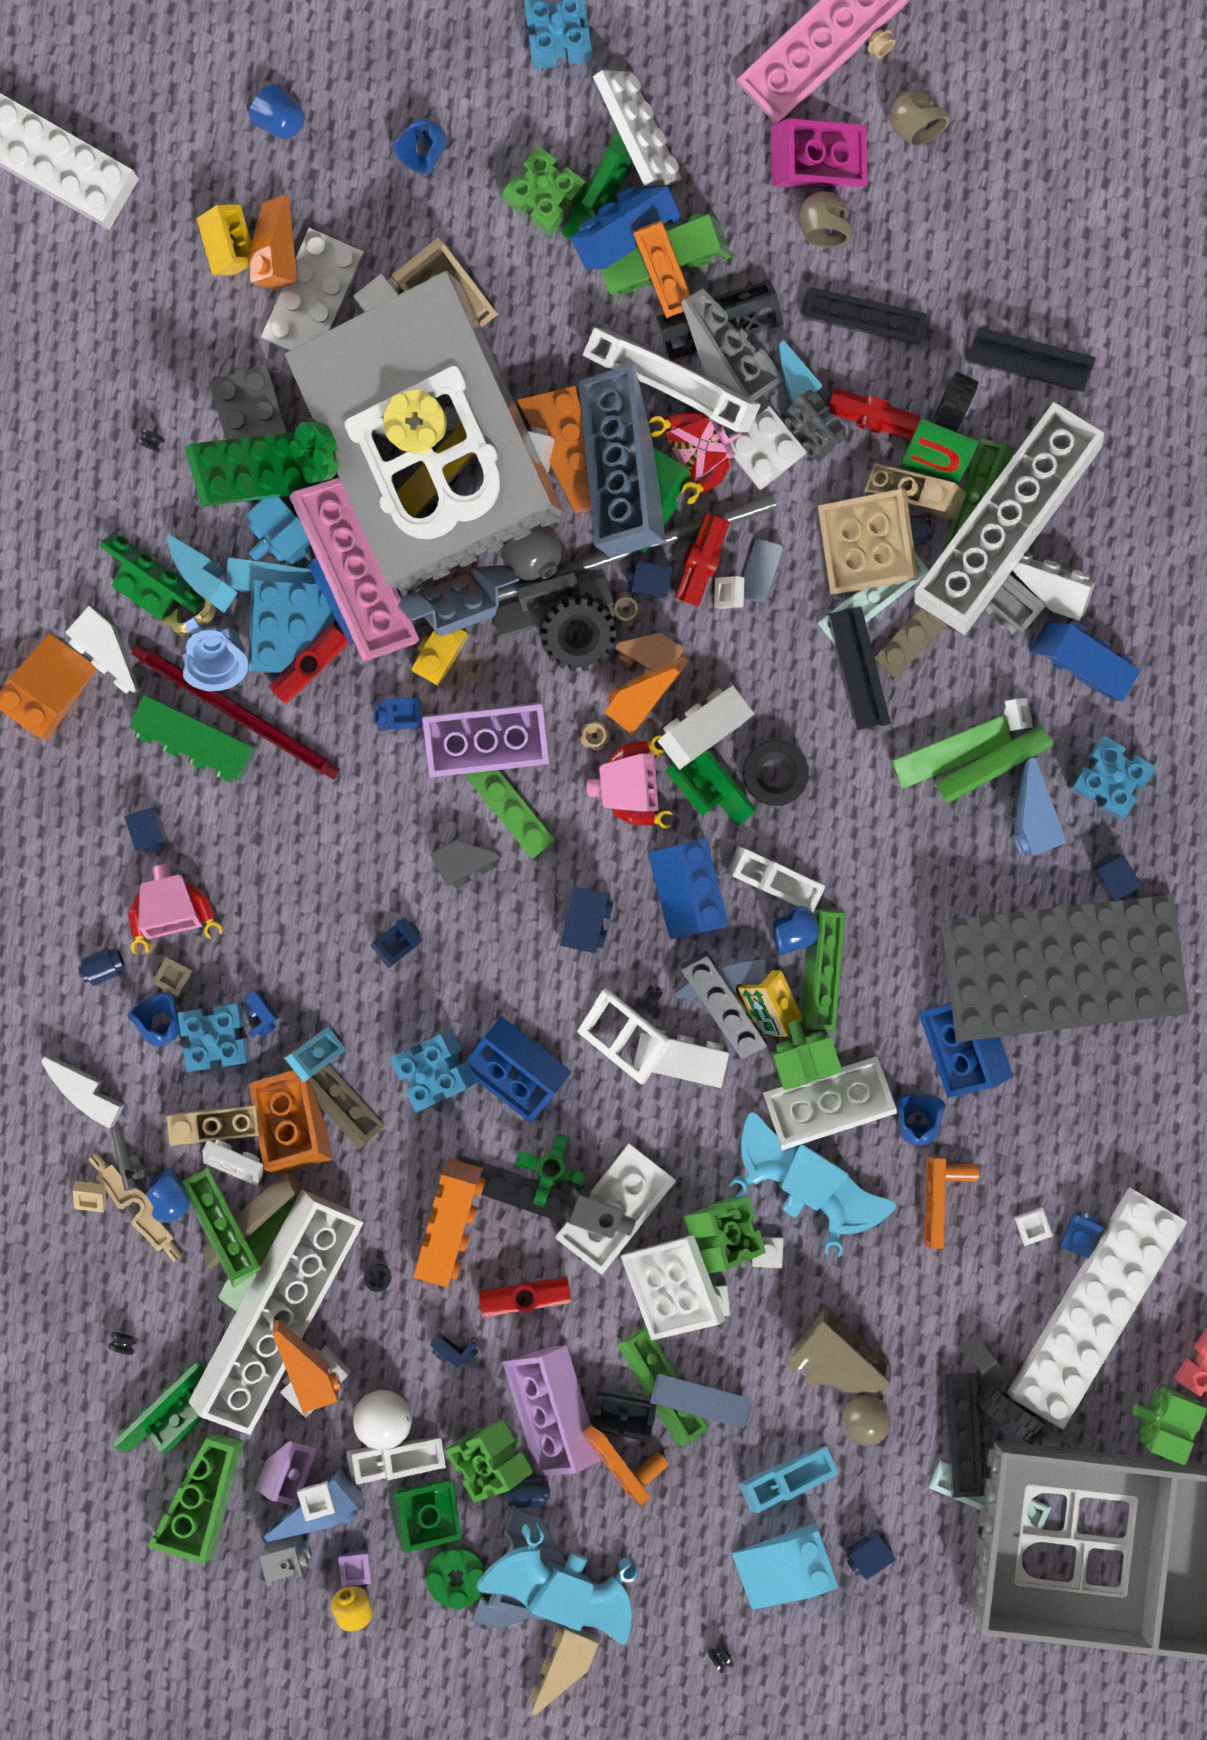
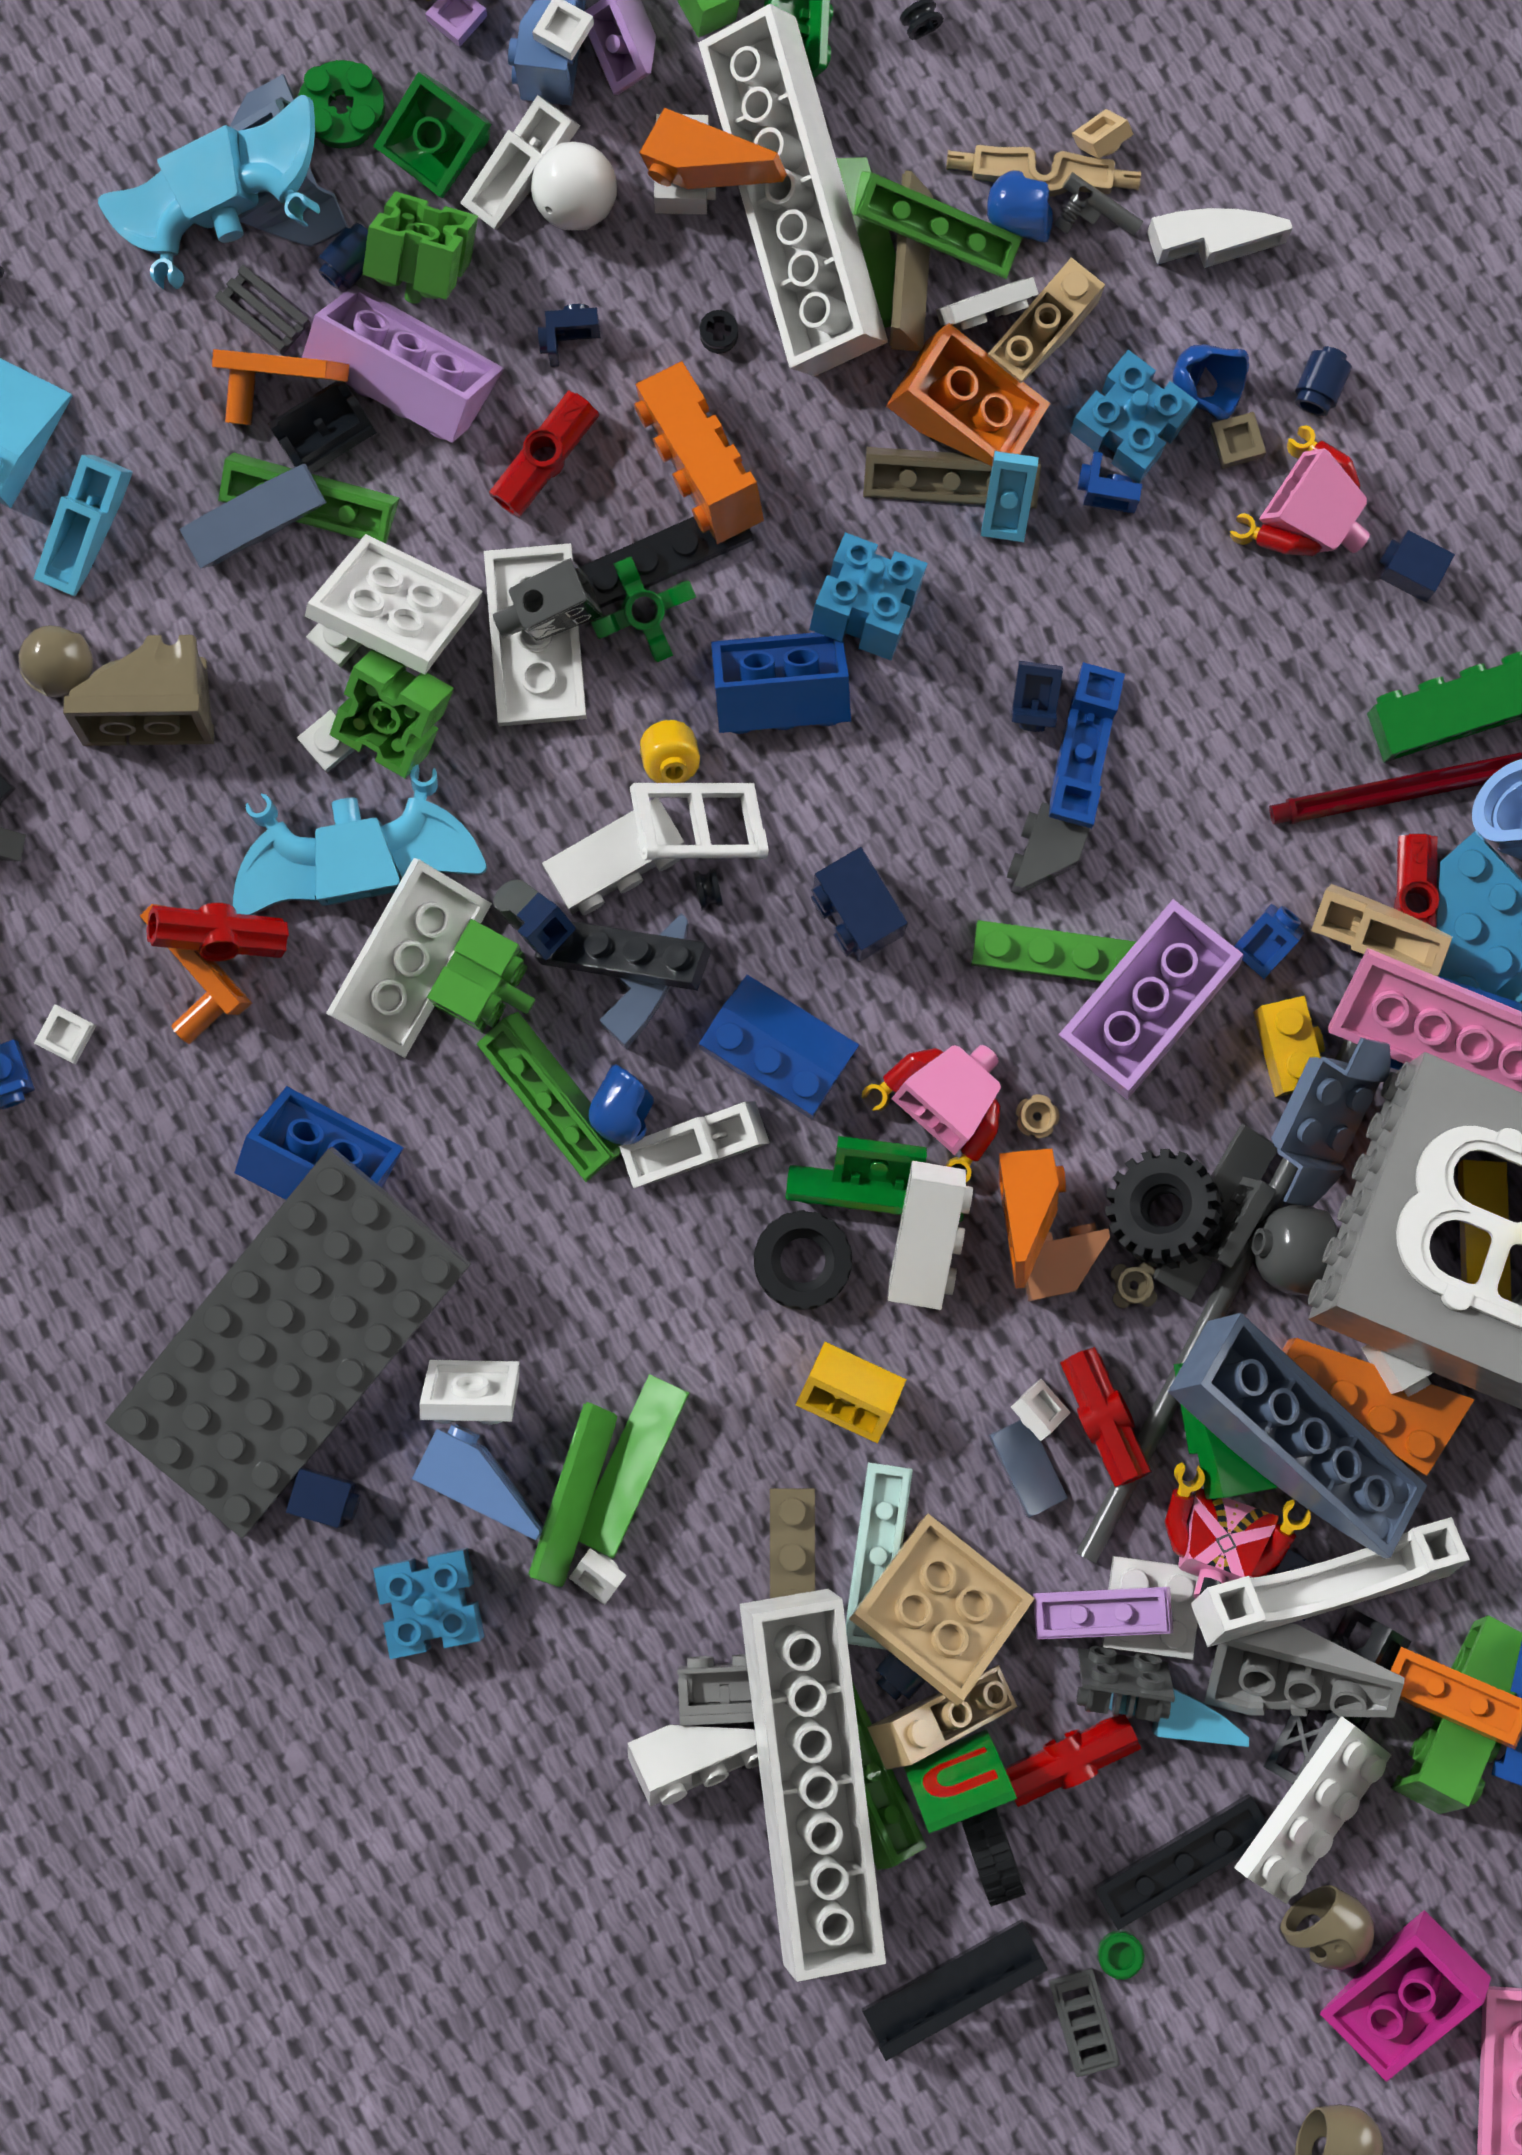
camera: 135 degrees right, 5 degrees down
(343, 665) = (1376, 926): none -> tan slope
(397, 894) = (1085, 745): none -> blue slope
(568, 1664) = (138, 115): tan slope -> none
(598, 1532) = (235, 286): none -> dark grey tile
(605, 1085) = (669, 752): none -> yellow head
(650, 580) = (1138, 1341): dark blue brick -> none
(749, 1057) = (533, 916): none -> dark blue leg
(771, 1004) = (571, 1004): panel -> none
(781, 281) = (1313, 1811): none -> white plate
(792, 467) = (1103, 1613): none -> lavender tile
(813, 686) = (851, 1392): none -> yellow brick
(859, 667) = (821, 1460): black fence -> none
(913, 1204) = (217, 932): none -> red piece
(930, 1106) = (281, 1017): blue hair -> none
(936, 301) = (1120, 1954): none -> green tile
(996, 263) = (1095, 2062): none -> dark grey slope
(998, 861) = (469, 1391): none -> white plate
(1086, 658) = (579, 1708): blue wedge -> none

